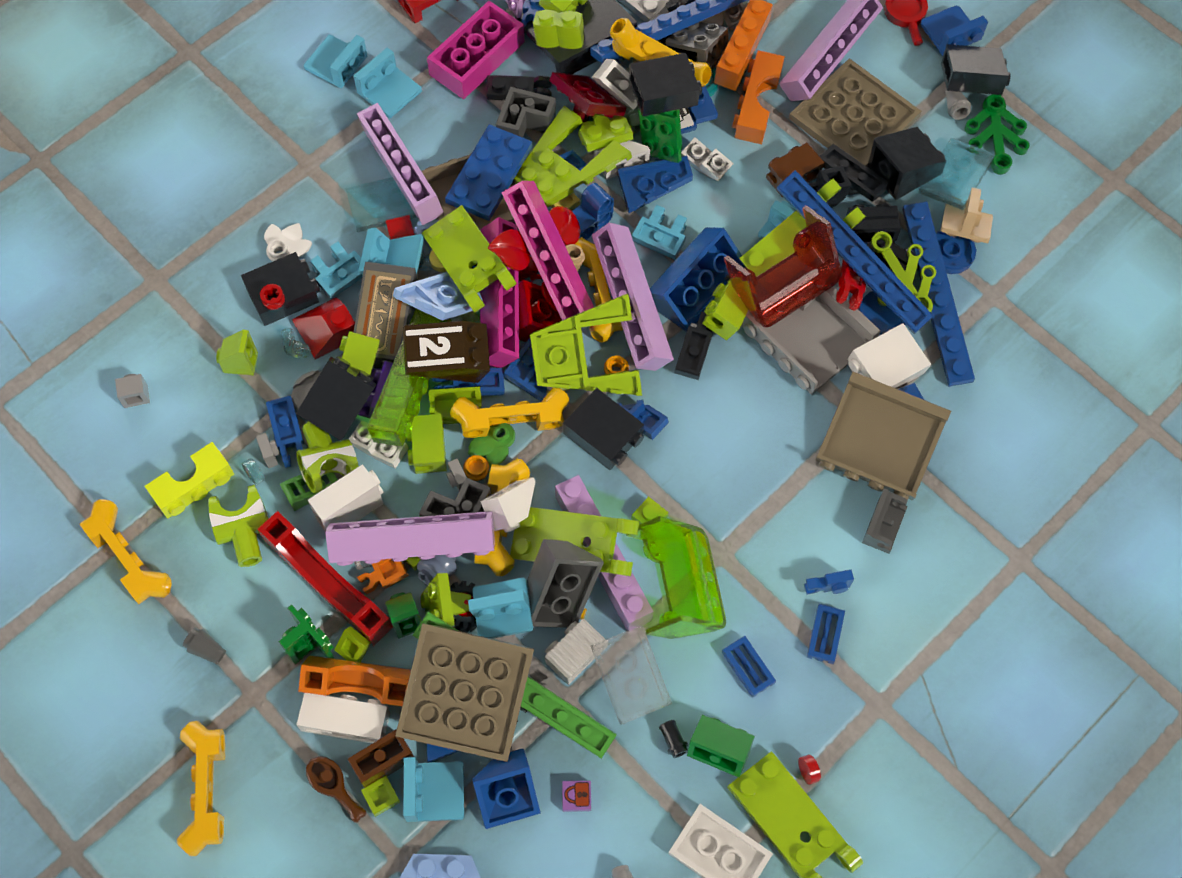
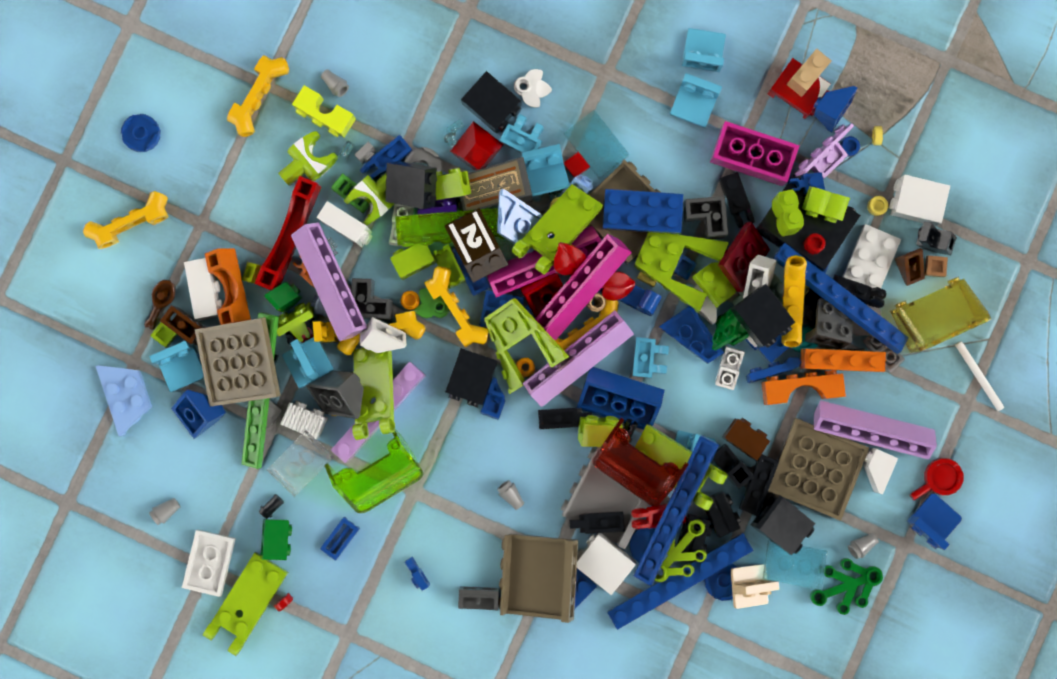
camera: 80 degrees right, 20 degrees up
(92, 728) = (140, 133): none -> blue tile
(132, 390) = (373, 39): light grey plate -> none
(161, 455) = (335, 83): none -> light grey cone
(204, 646) = (216, 177): dark grey cone -> none
(238, 354) = (426, 98): lime slope -> none
(270, 290) = (480, 99): red bush -> none
(304, 638) = (244, 241): green bracket -> none
(400, 164) = (623, 142): lavender brick -> none
(456, 474) = (396, 290): light grey plate -> none
(473, 572) = (324, 332): none -> yellow slope
(576, 796) = (212, 457): tile -> none
(603, 20) = (814, 243): none -> red tile
(648, 510) = (422, 433): lime plate -> none
(725, 115) = (774, 369): none -> blue hinge
(765, 438) = (510, 494): none -> light grey cone
(820, 656) = (384, 582): blue tile -> none
(837, 351) = (599, 522): none -> black hinge
(878, 57) = (879, 468): none -> white slope
(975, 69) = (897, 552): black brick -> none

